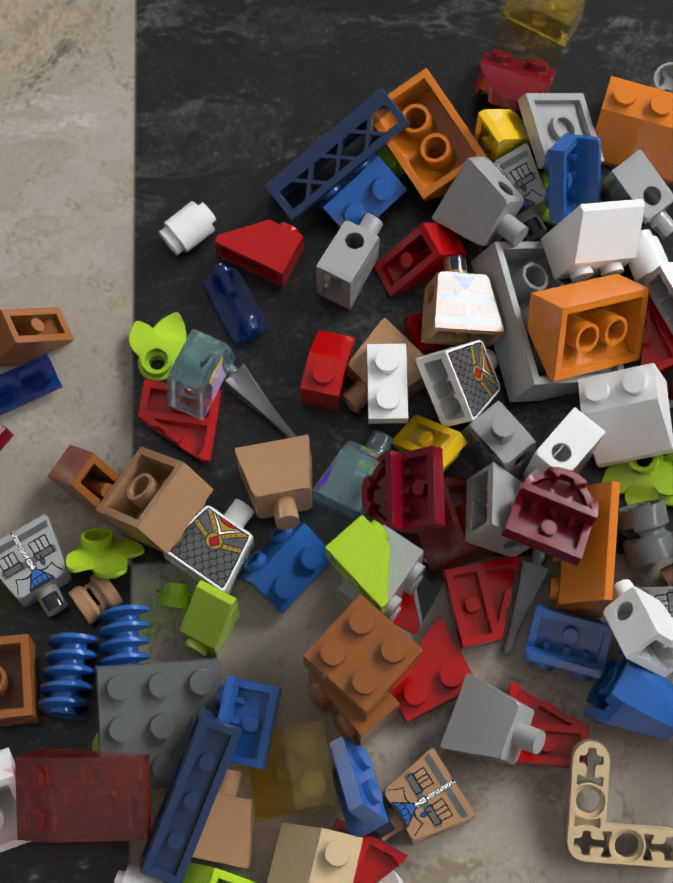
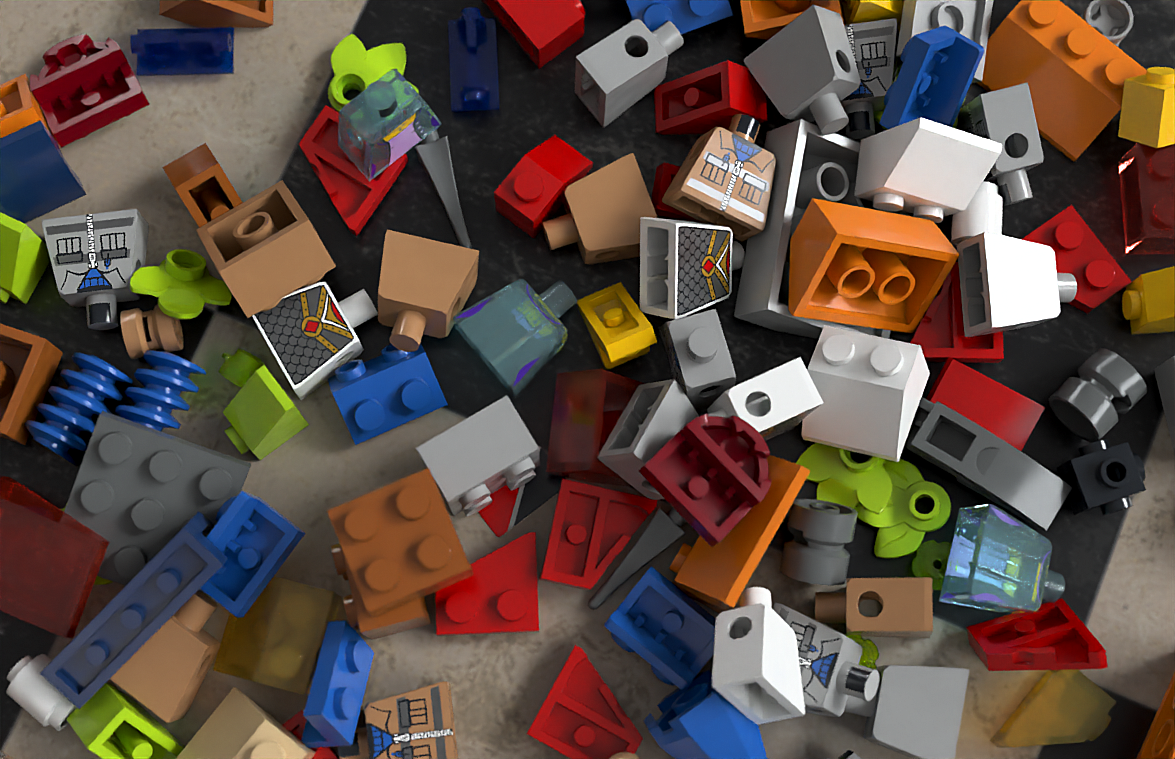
camera: 20 degrees right, 5 degrees up
(363, 559) = (460, 428): lime slope -> none
(387, 383) = (597, 231): white plate -> none
(406, 490) = (556, 367): dark red slope -> none
(490, 724) = (527, 684): light grey torso -> none

